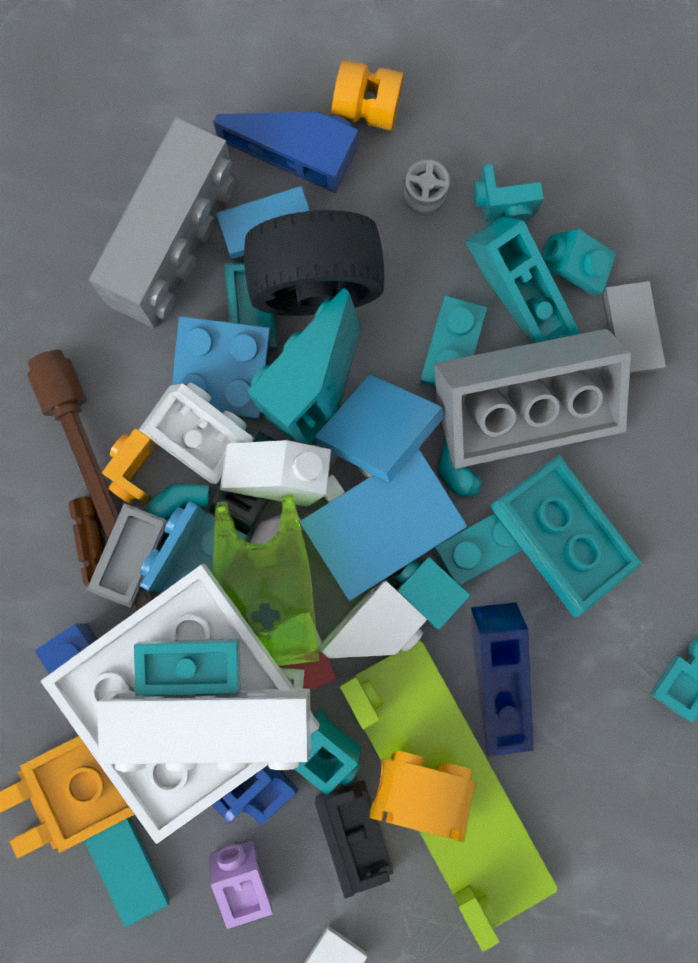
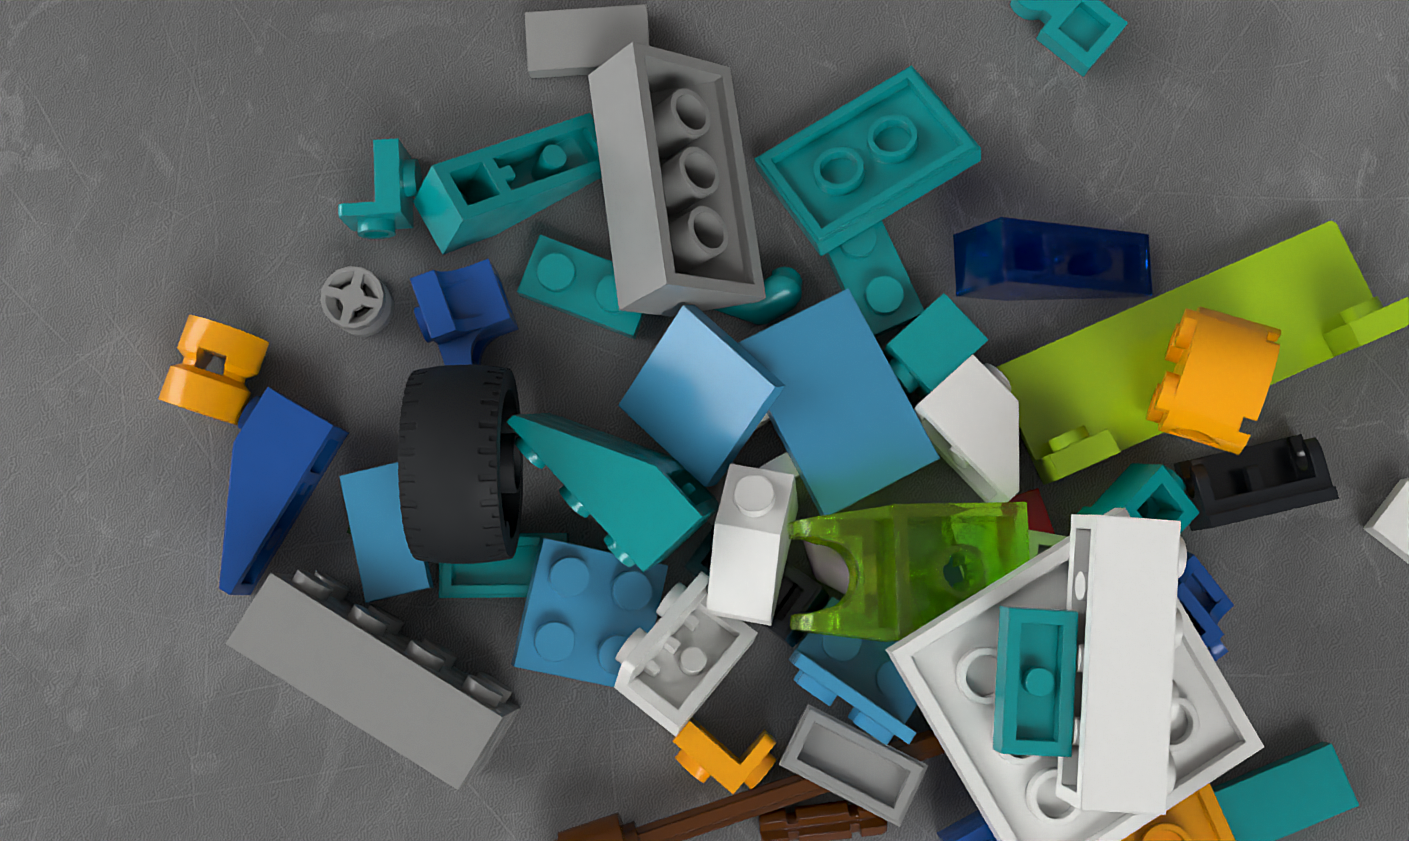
camera: 75 degrees left, 0 degrees up
(178, 496) = (769, 693): teal arm -> none
(239, 884) = (1307, 643): lavender bracket -> none
(424, 258) = (462, 311): none -> blue brick
(579, 260) = (485, 103): teal bracket -> none

